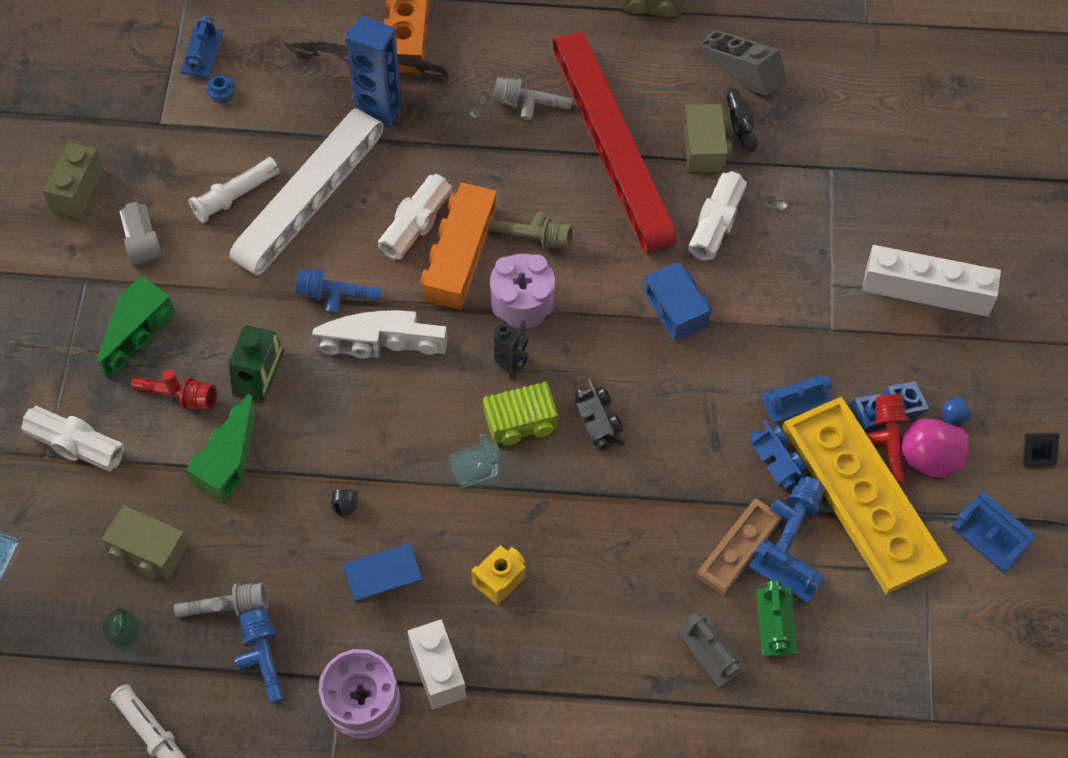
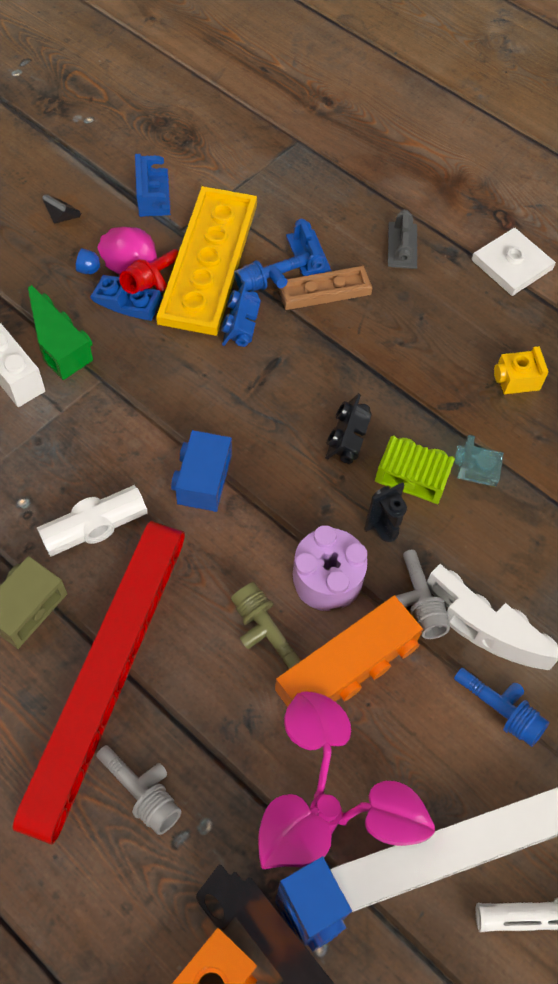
camera: 145 degrees left, 0 degrees up
(360, 159) = (300, 834): none -> dark pink plant
(415, 216) = (378, 724): white piece -> none
(429, 311) = (425, 609): none -> light grey piece
(593, 713) = (513, 261): none -> white plate
(776, 620) = (346, 229): green hinge -> none
(797, 398) = (185, 345): blue hinge -> none
(898, 324) = (60, 342): none -> green slope

